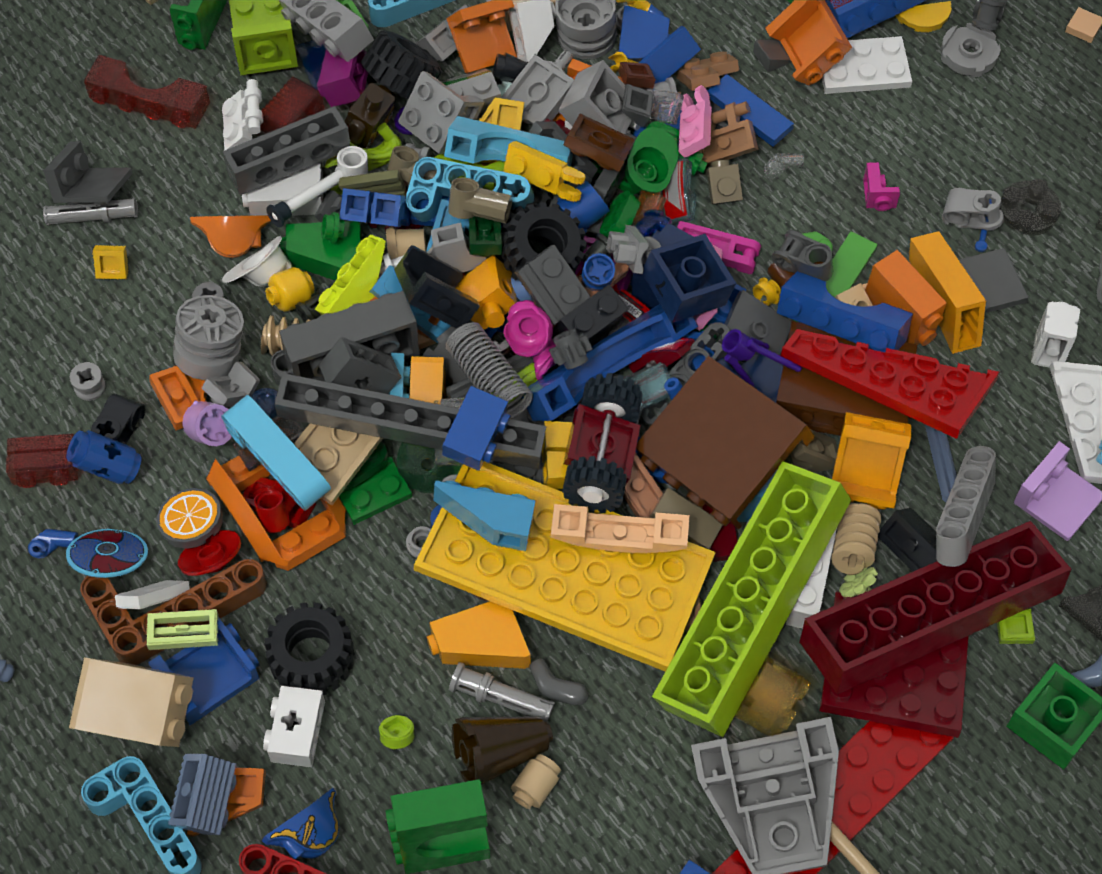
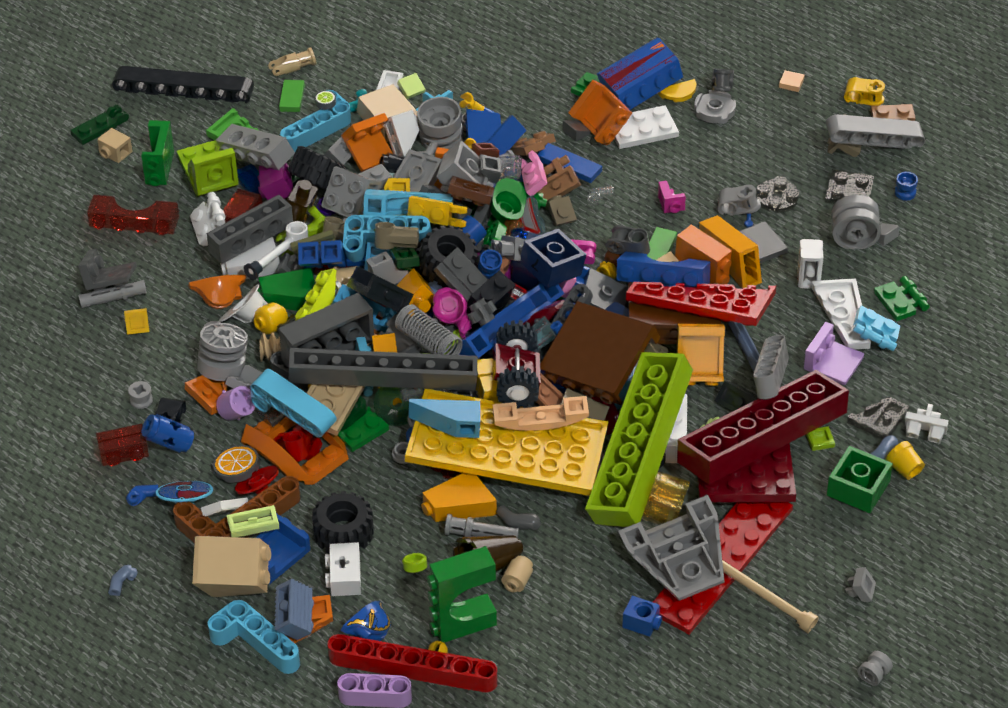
camera: 10 degrees left, 15 degrees down
(332, 227) = (293, 271): green plate -> none
(359, 367) = (335, 339): dark grey brick -> none
(475, 429) = (430, 360): blue brick -> none
(743, 347) = (599, 296): dark purple plant -> none
(856, 539) = (701, 400): tan piece -> none

